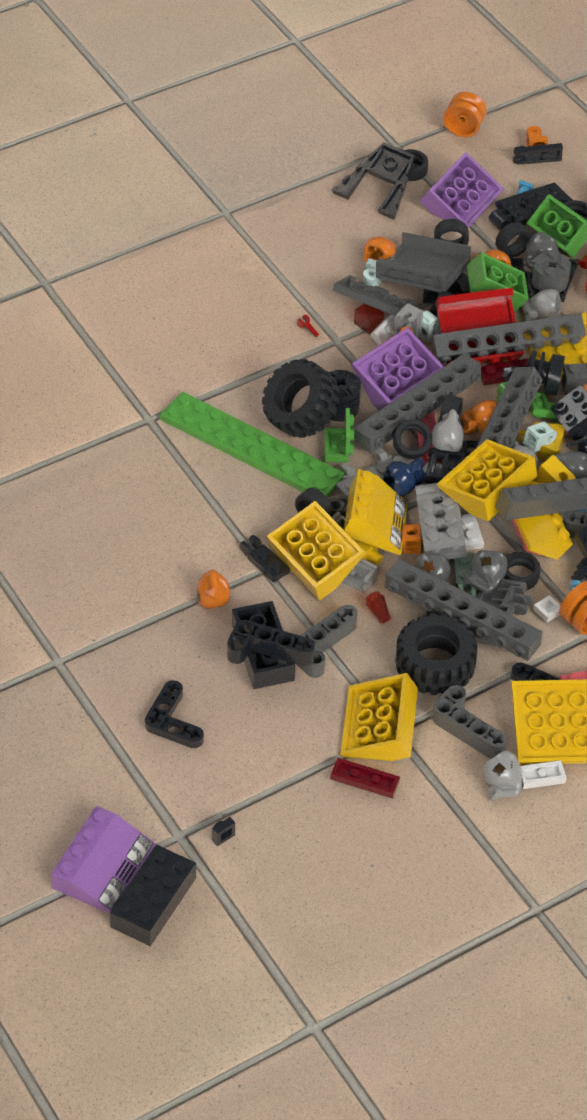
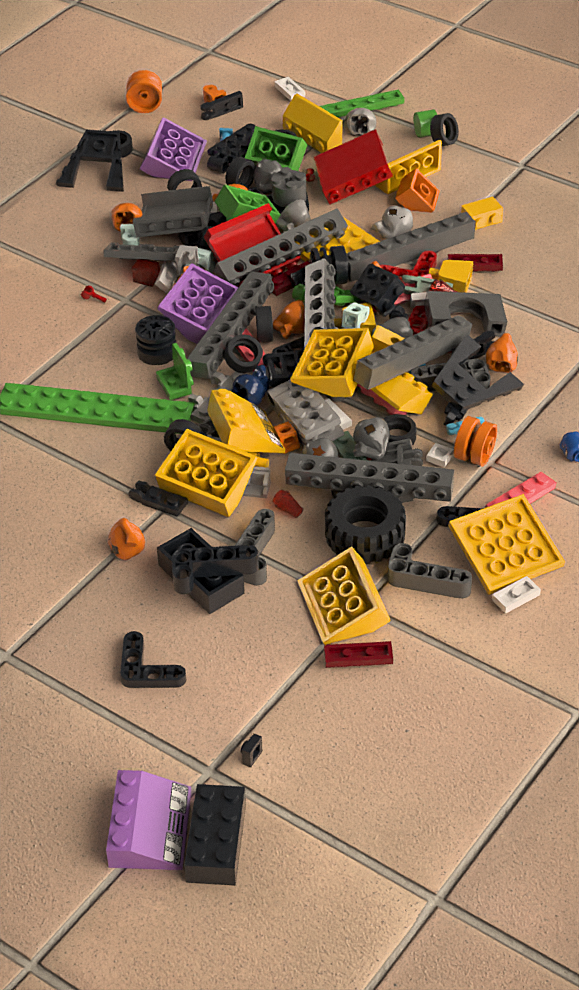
camera: 20 degrees left, 5 degrees down
(316, 409) = (107, 339): black tyre -> none
(448, 433) = (274, 336): light grey piece -> none
(503, 776) = (484, 607): light grey piece -> none

